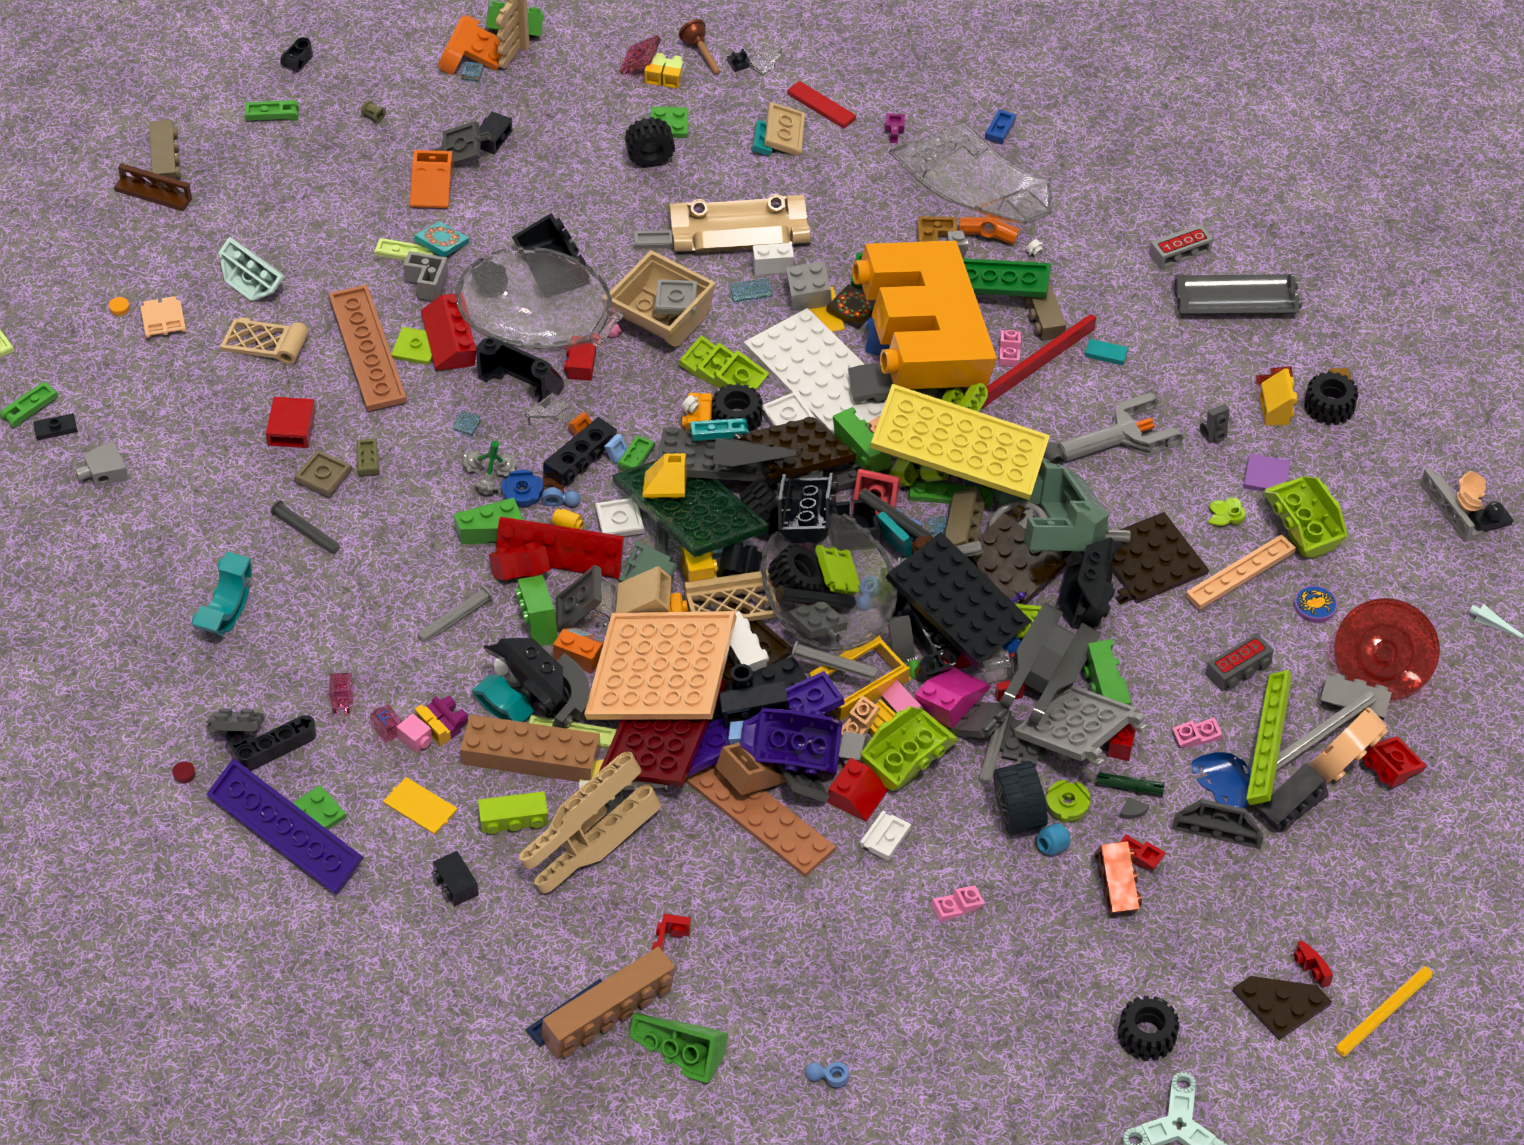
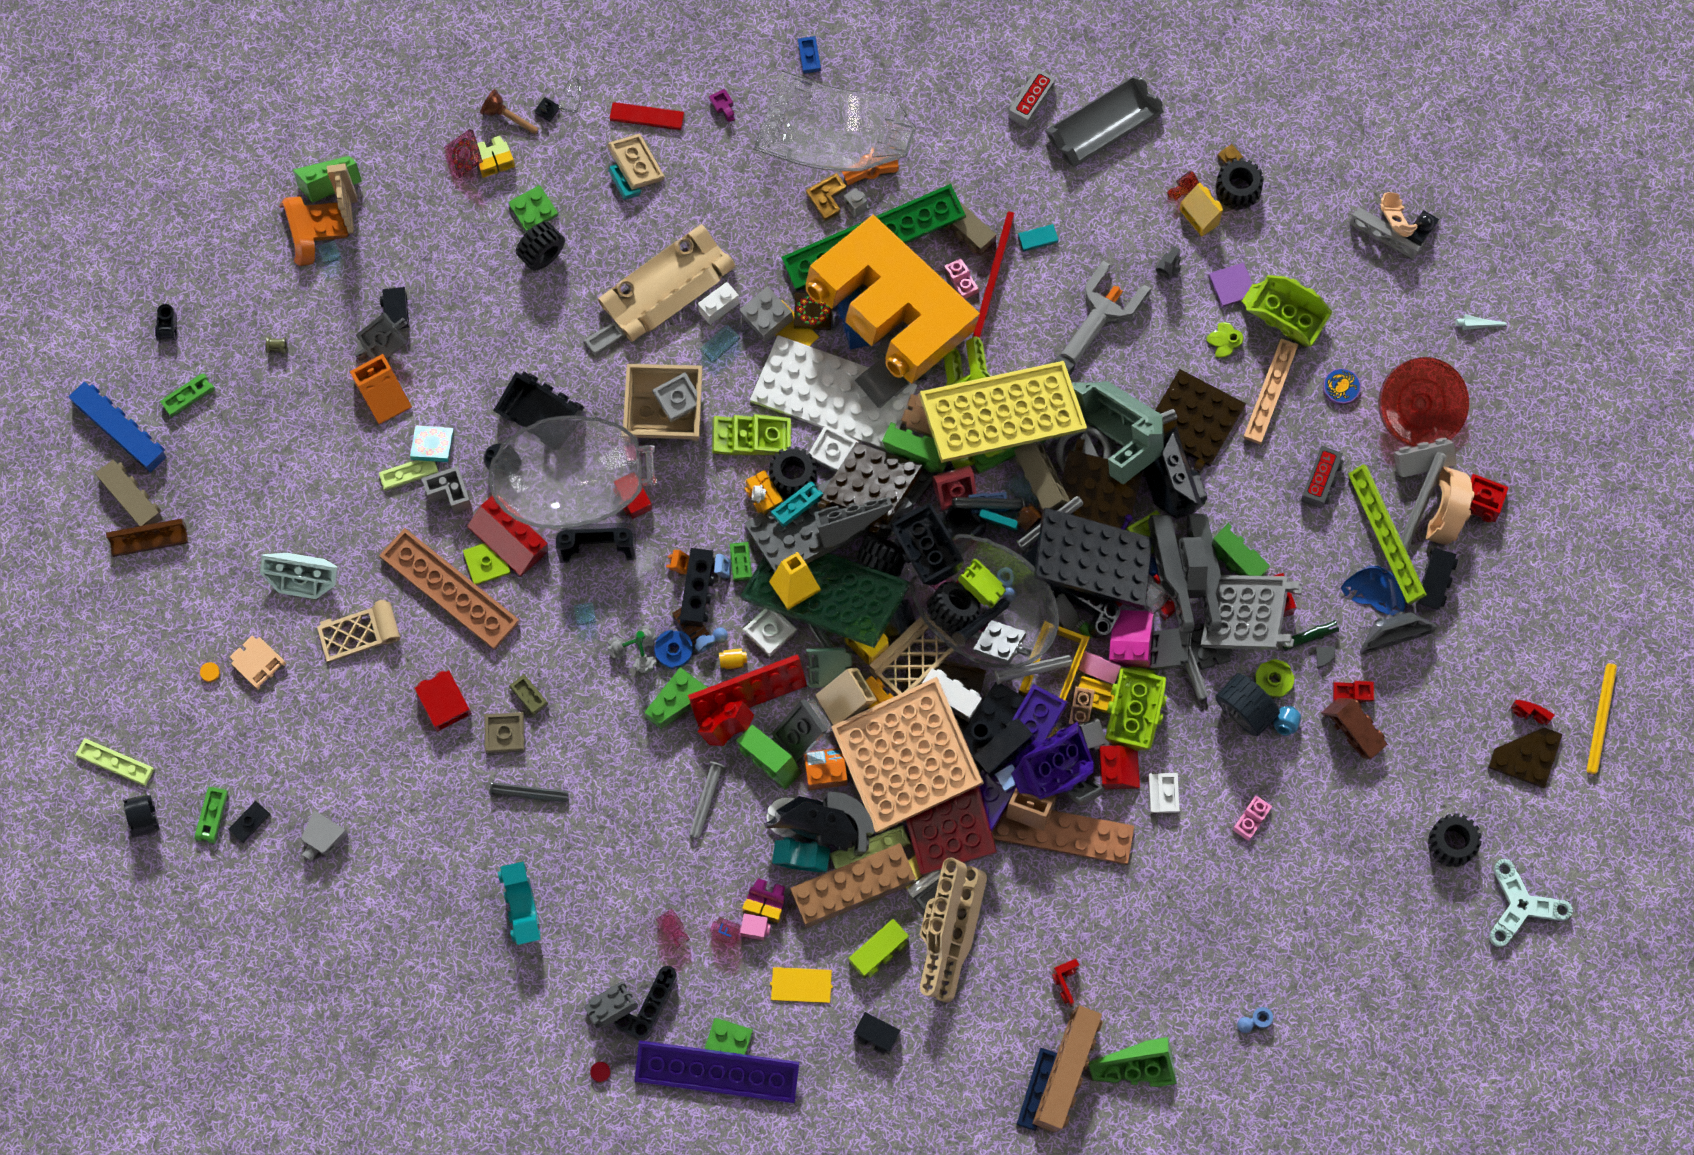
camera: 30 degrees left, 20 degrees up
(196, 103) = (116, 426): none -> blue brick
(1034, 248) = (917, 166): white plate -> none
(1196, 734) = (1328, 558): bright pink slope -> none

